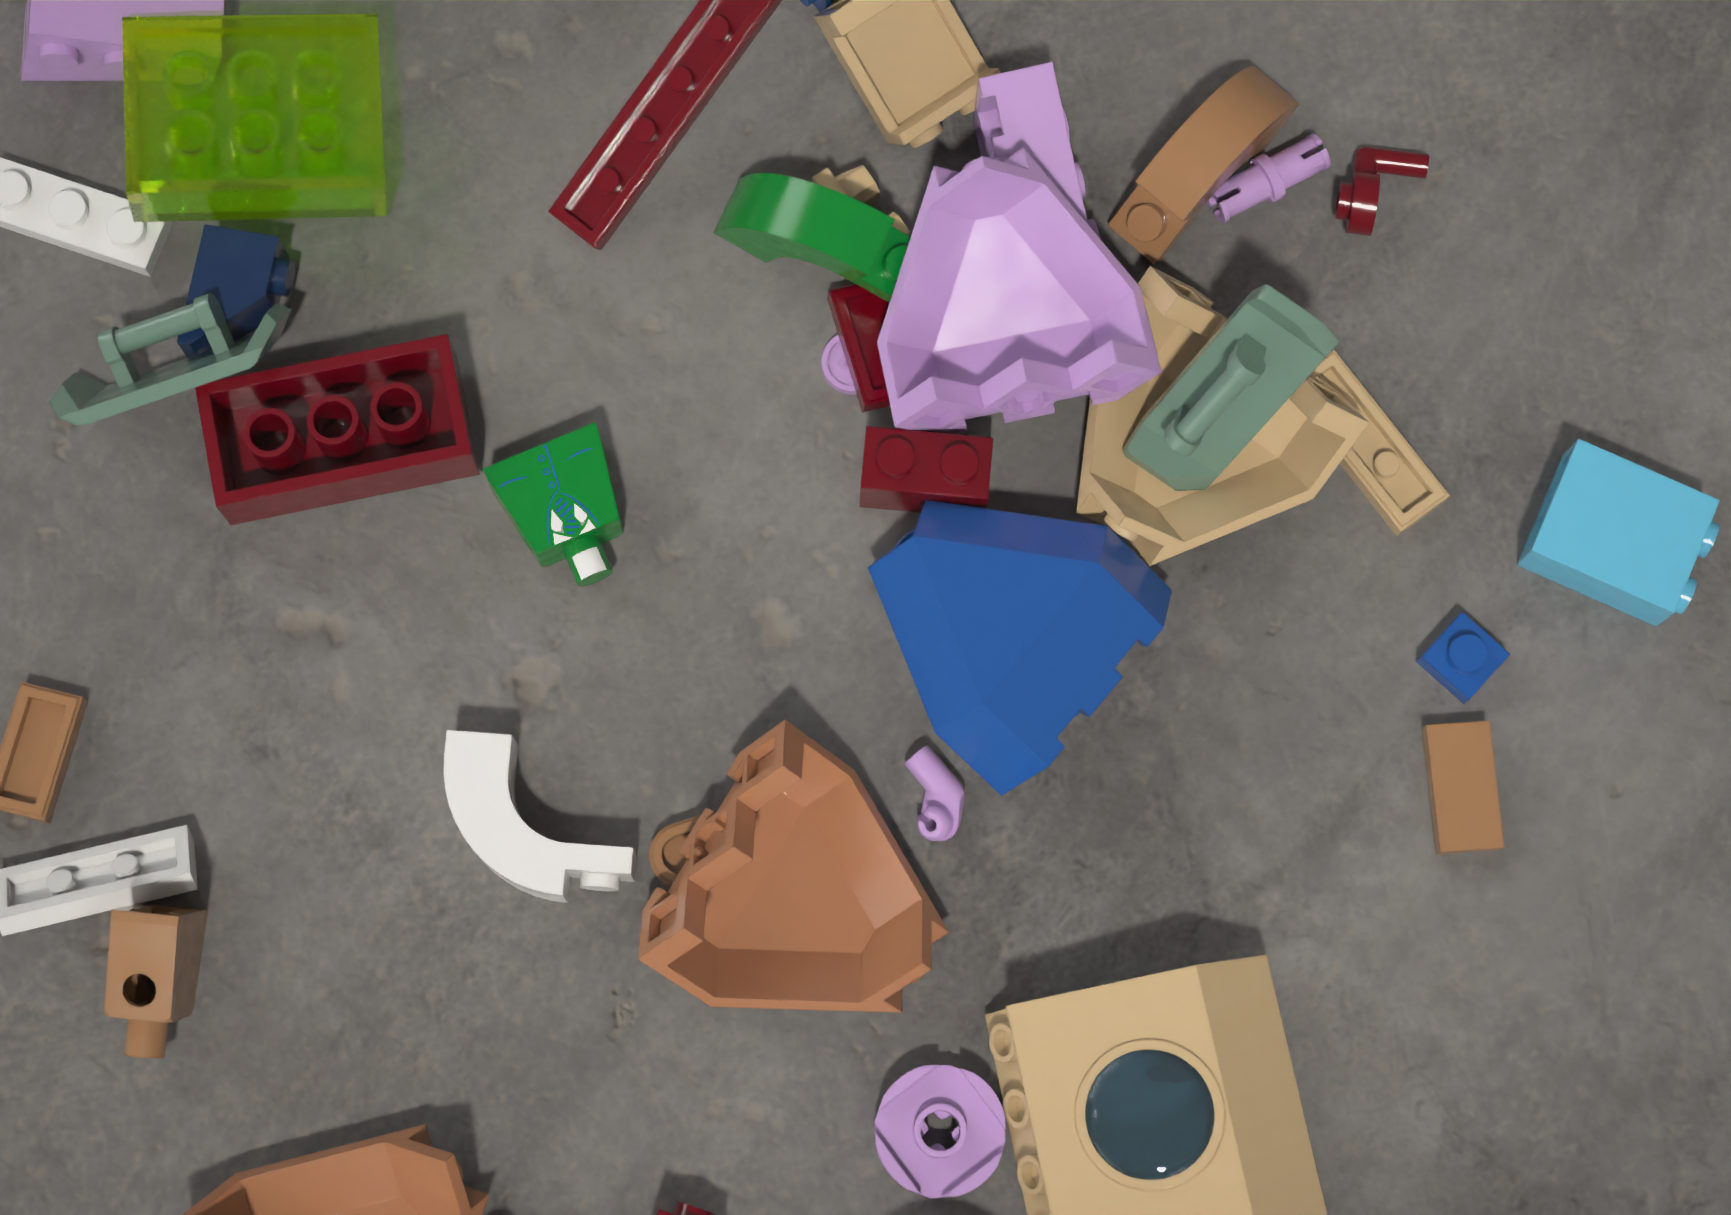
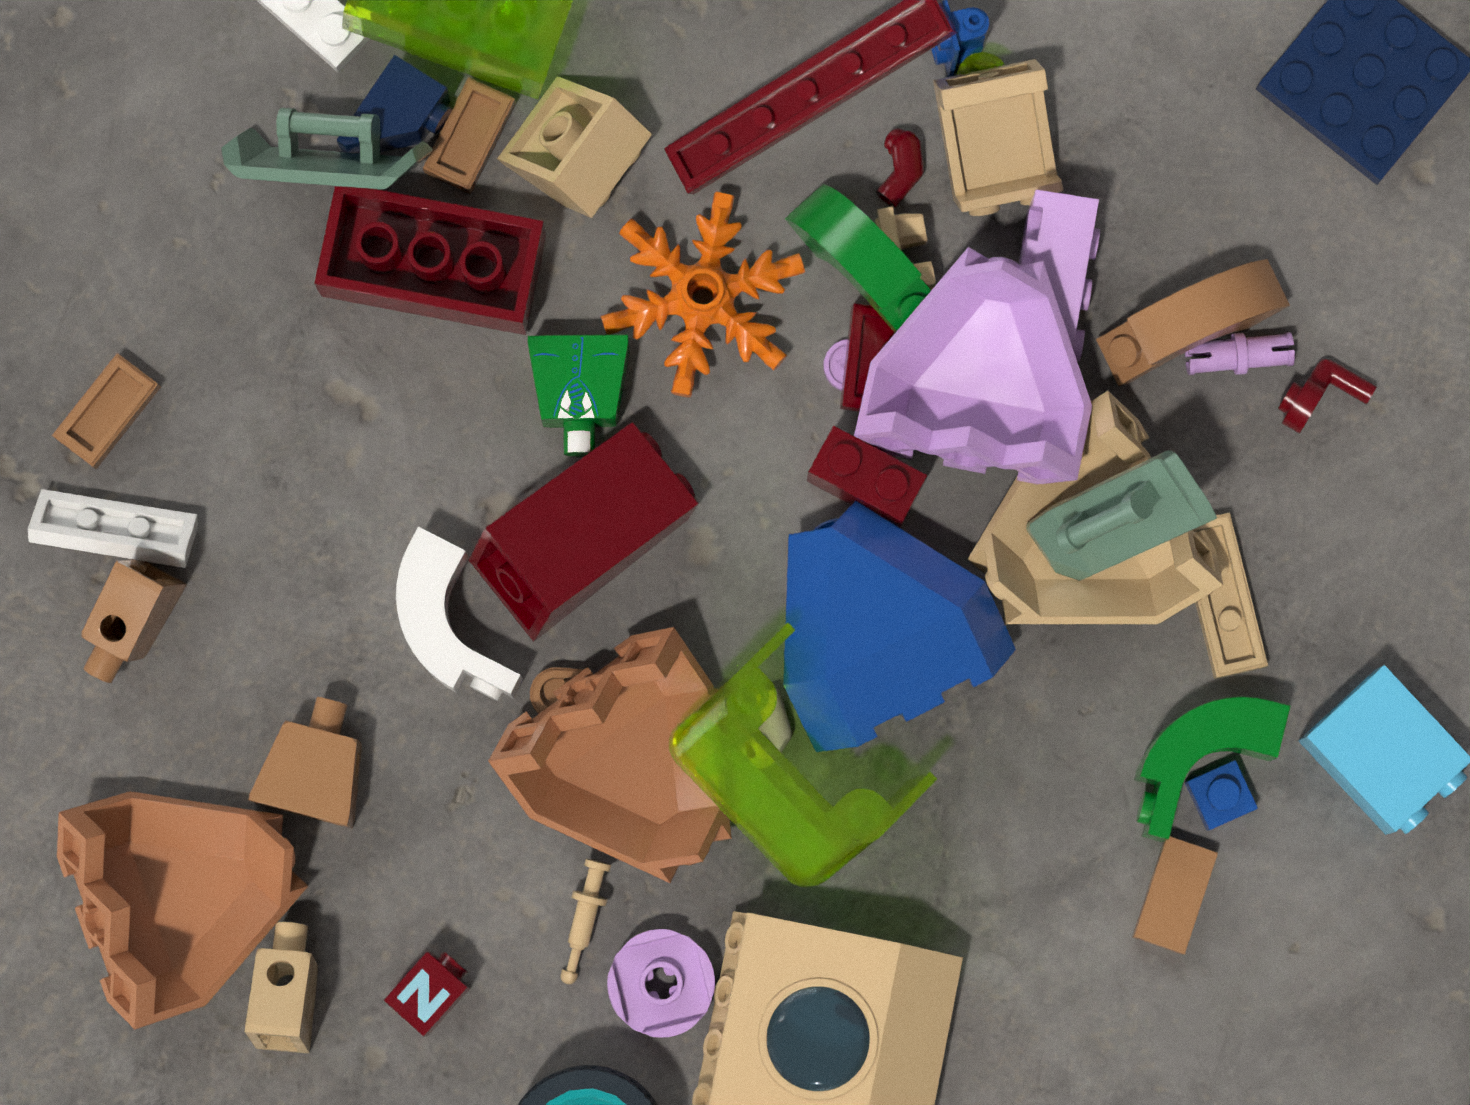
camera: 25 degrees right, 5 degrees up
(325, 284) = (469, 135): none -> medium nougat tile
(438, 1056) = (313, 768): none -> medium nougat torso
(450, 245) = (575, 146): none -> tan slope
(632, 660) = (582, 529): none -> dark red slope
(653, 329) = (705, 275): none -> orange piece
(820, 1093) = (584, 916): none -> tan piece
(822, 122) = (907, 165): none -> dark red arm
(969, 860) = (765, 791): none -> clear neon green windscreen
(1439, 576) = (1224, 725): none -> green arch

